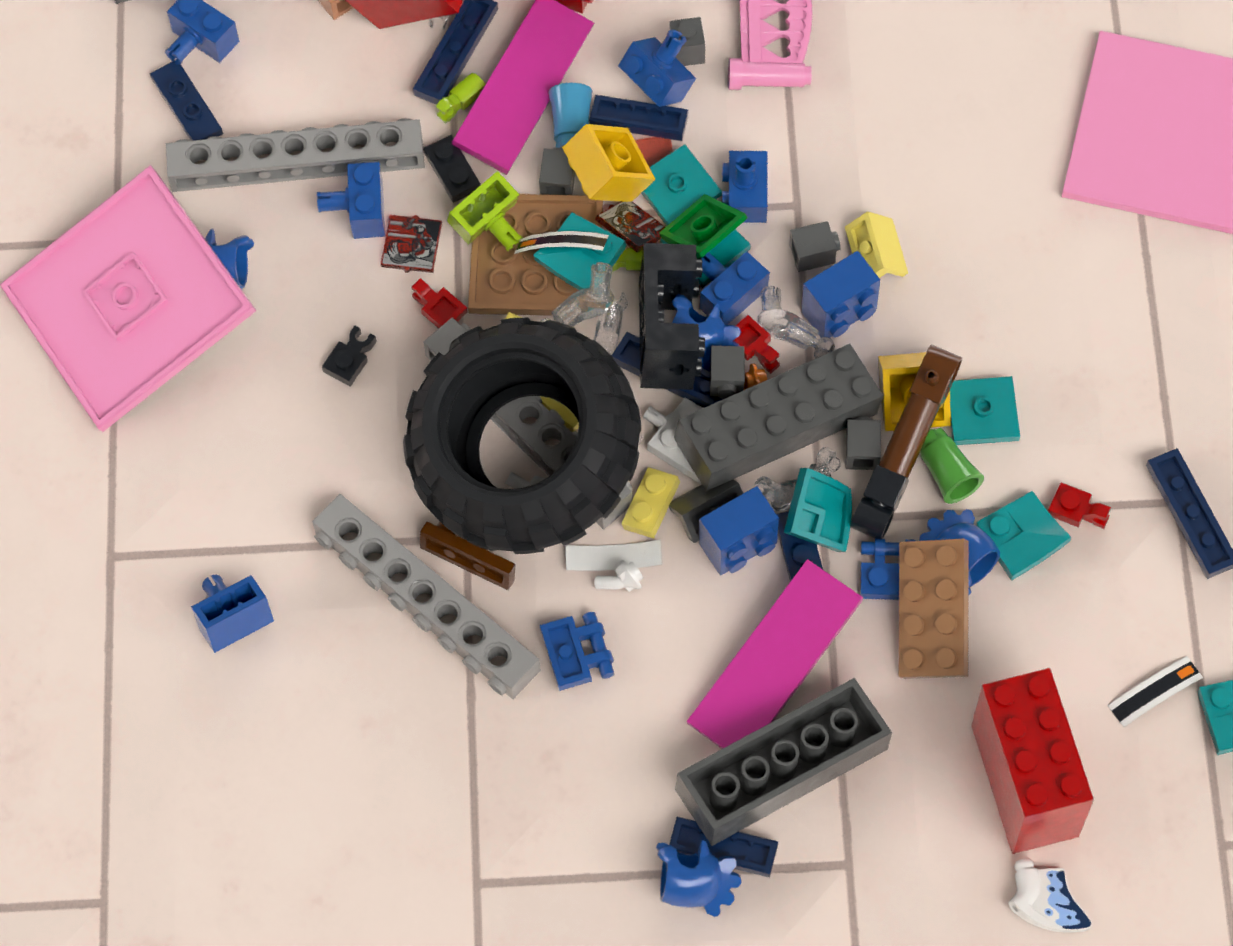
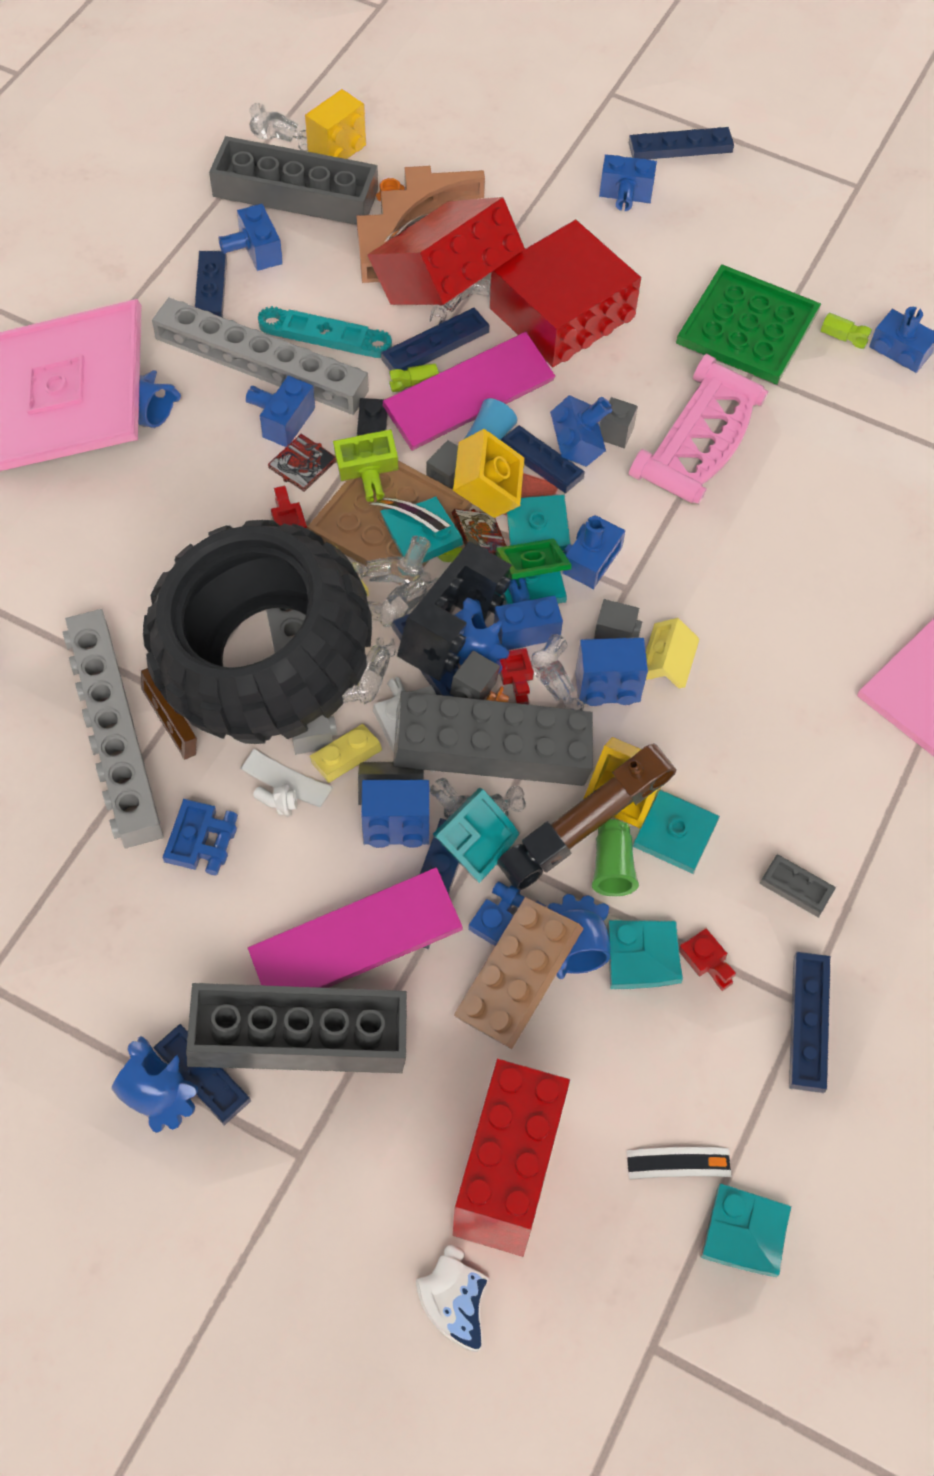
camera: 25 degrees right, 5 degrees down
(321, 99) = (307, 329): none -> teal piece
(349, 360) = (192, 520): black plate -> none
(863, 443) = (552, 799): dark grey brick -> none
(1114, 401) = (797, 885): none -> dark grey plate

